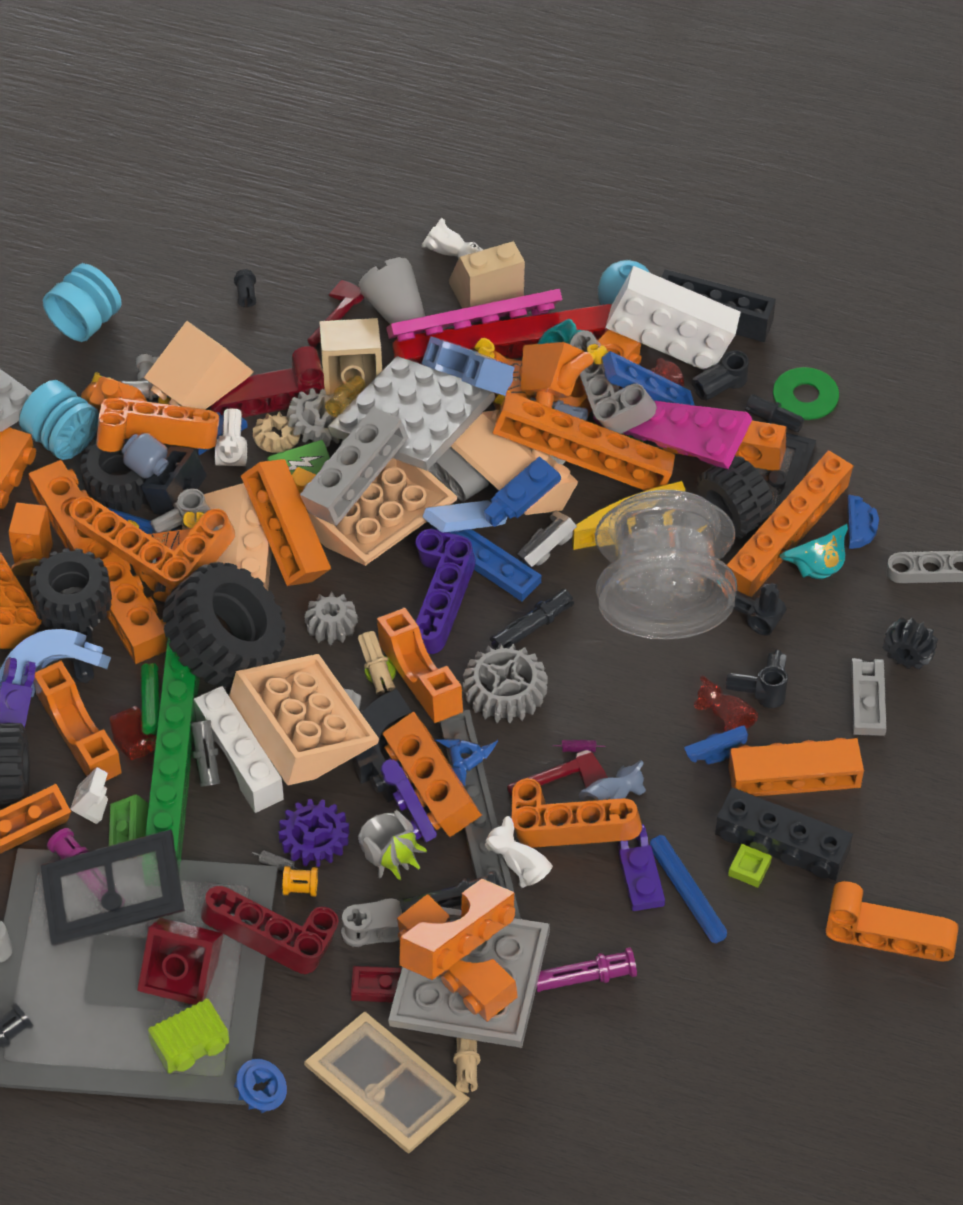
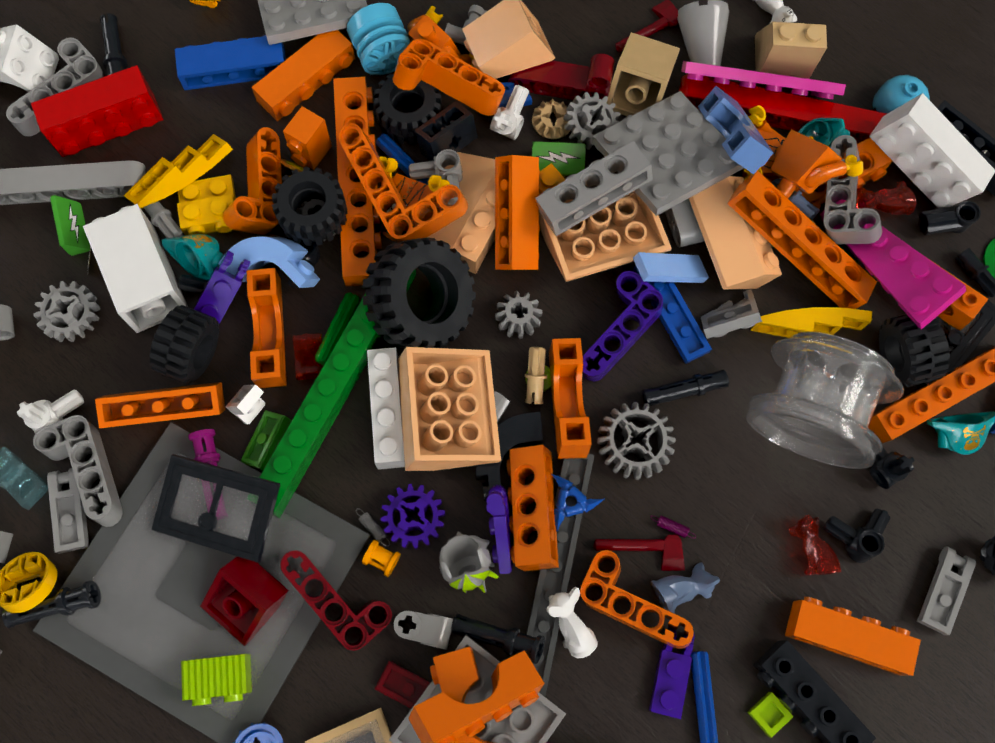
camera: 20 degrees right, 20 degrees up
(145, 455) = (426, 104): sand blue head -> none
(208, 775) = (353, 418): dark grey pin -> none
(345, 395) = (620, 111): clear yellow pin -> none
(522, 492) = (729, 268): blue hinge -> none
(625, 372) = (872, 195): blue plate -> none
(717, 746) = (793, 585): blue plate -> none

